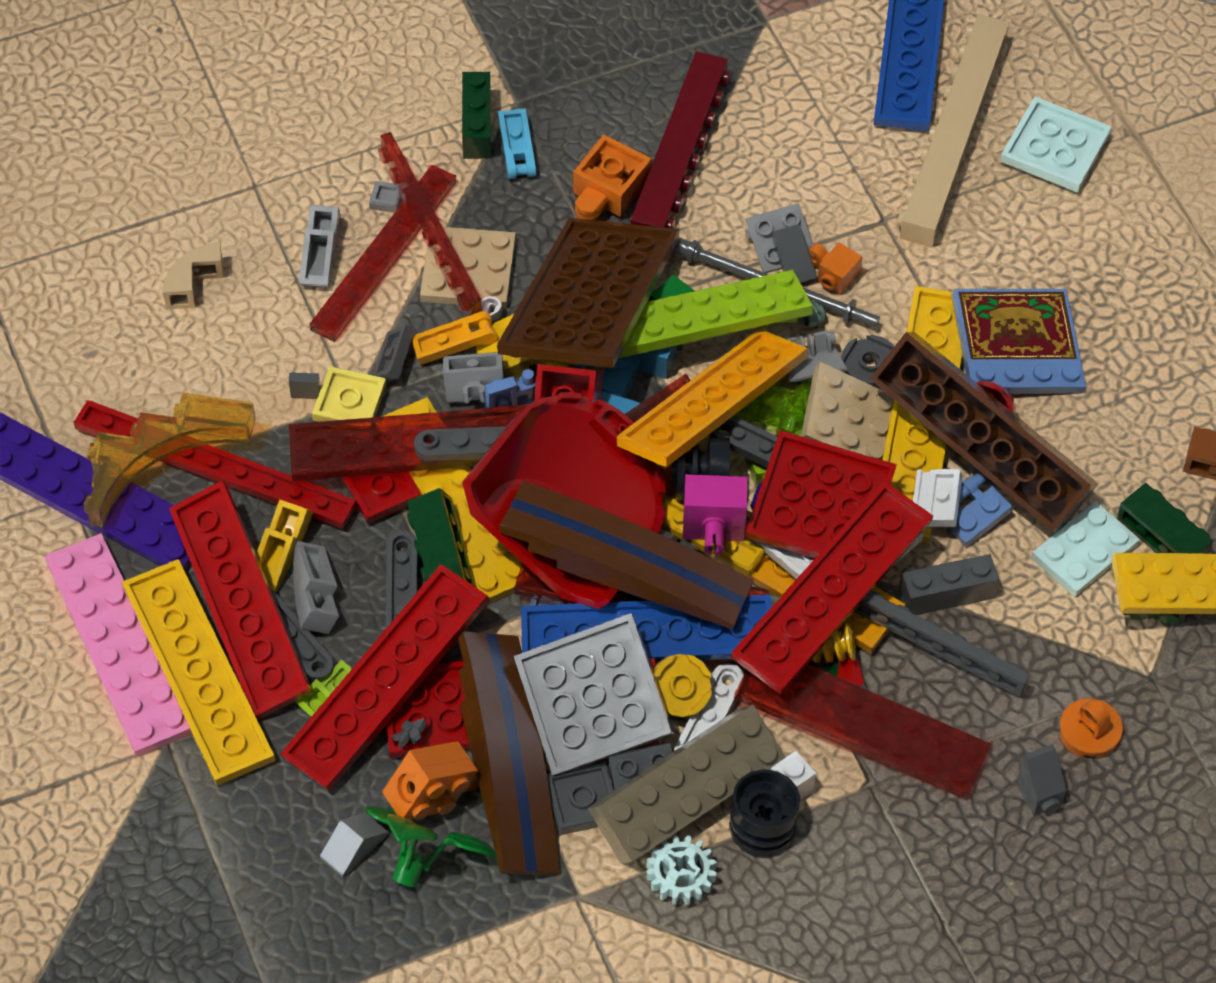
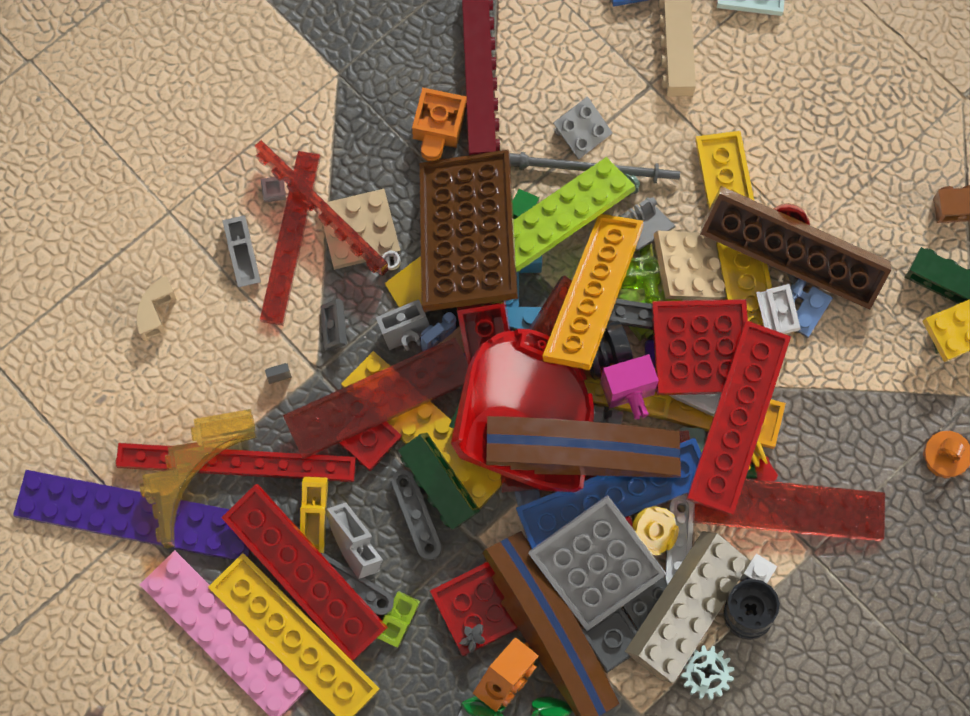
camera: 20 degrees left, 15 degrees up
(348, 396) = (315, 372): light yellow plate -> none
(384, 677) = (438, 599): red plate -> none
(454, 337) = (374, 295): light orange plate -> none
(455, 443) = (426, 385): dark grey plate -> none
(476, 115) = (316, 97): dark green brick -> none
(516, 143) = (354, 110): medium azure plate -> none
(794, 252) = (598, 139): dark grey tile -> none
(836, 268) = (633, 139): orange brick -> none
(865, 349) = (695, 202): dark grey plate -> none
(941, 642) = (831, 428): dark grey plate -> none
(949, 584) = (810, 376): dark grey brick -> none
(1019, 339) = (786, 157): plate -> none
(1042, 780) = (934, 514): dark grey slope -> none
(1084, 548) = (893, 312): light aqua plate -> none

